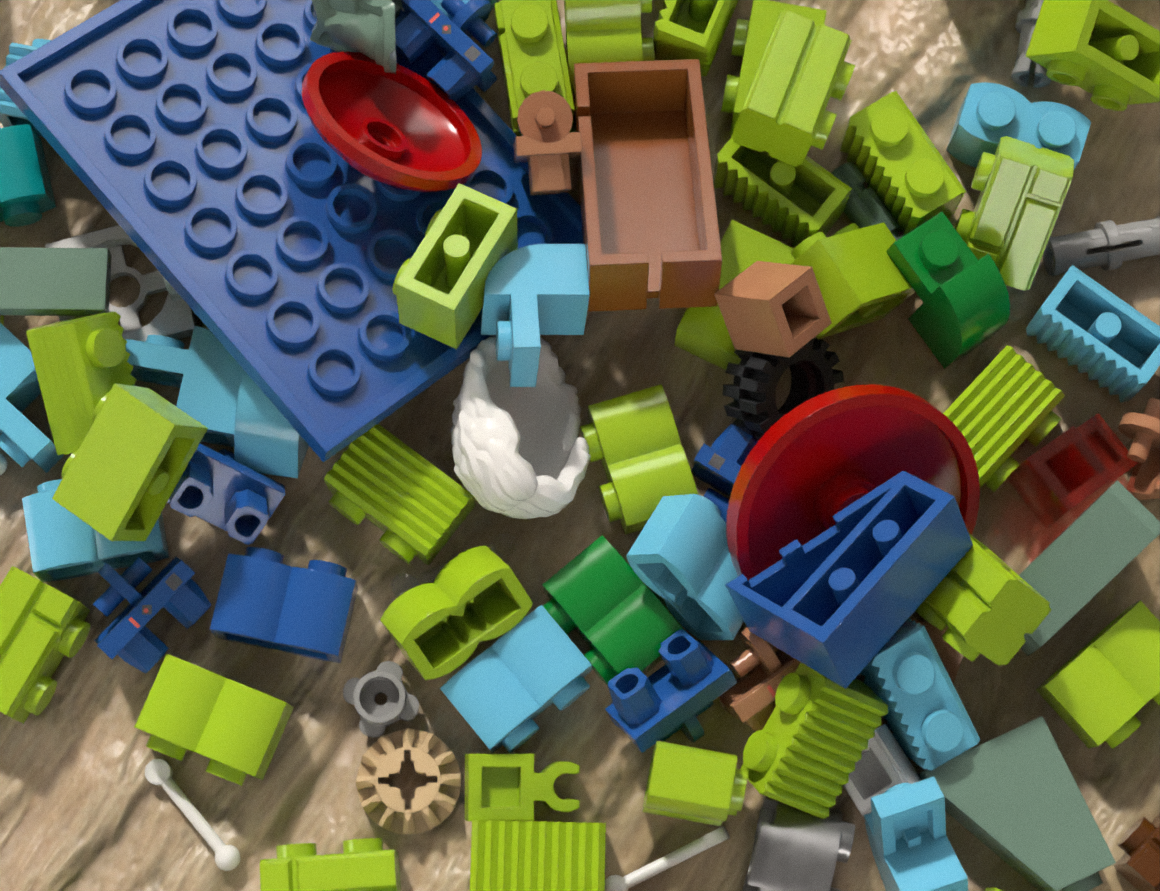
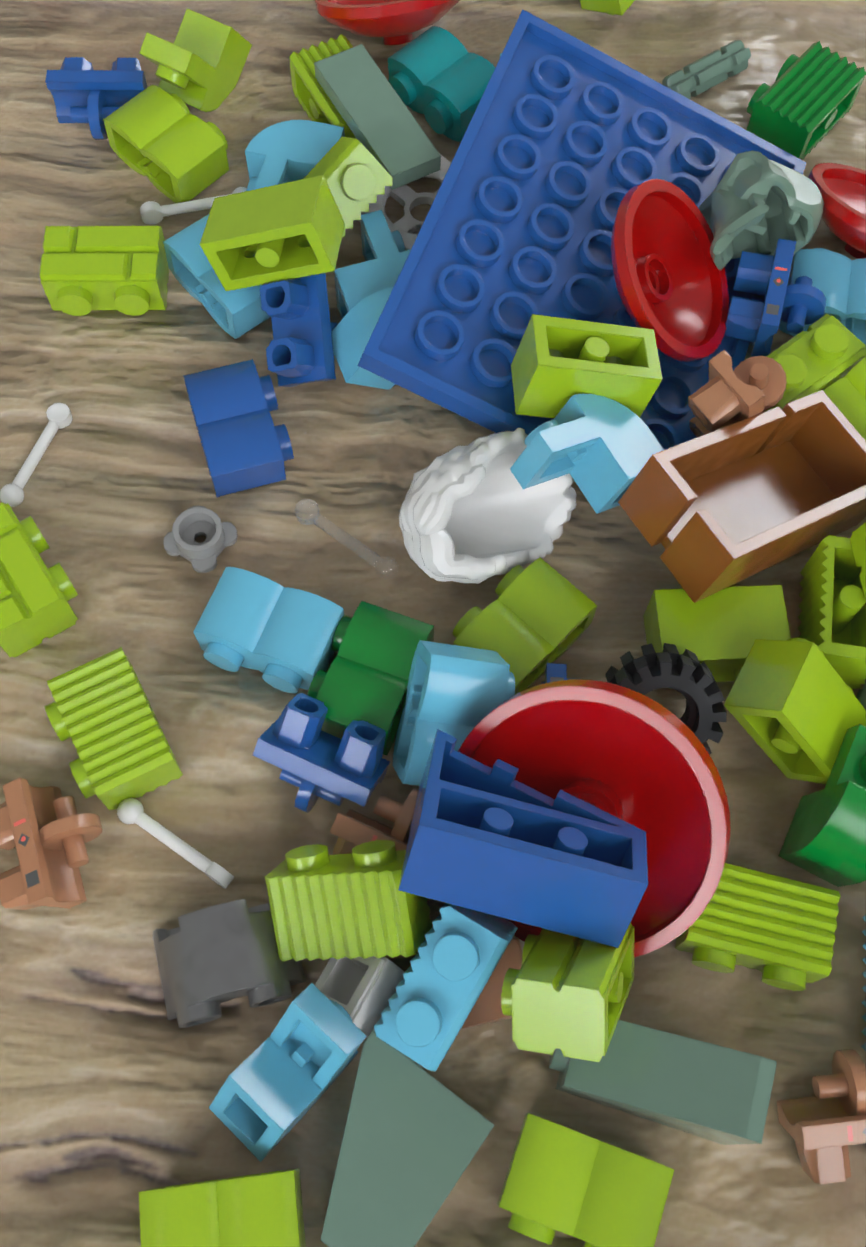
camera: 60 degrees right, 10 degrees down
(127, 632) = (155, 332): blue hips -> none
(214, 719) = (114, 424): lime brick -> none
(399, 494) = (377, 459): lime brick -> none
(430, 802) = (130, 619): tan gear -> none
(467, 603) = (287, 538): lime brick -> none
(506, 786) = (172, 670): lime plate -> none
(694, 784) = (243, 811): lime brick -> none
(773, 308) = (723, 642): nougat brick -> none
(1070, 470) = (761, 1016): clear red brick -> none

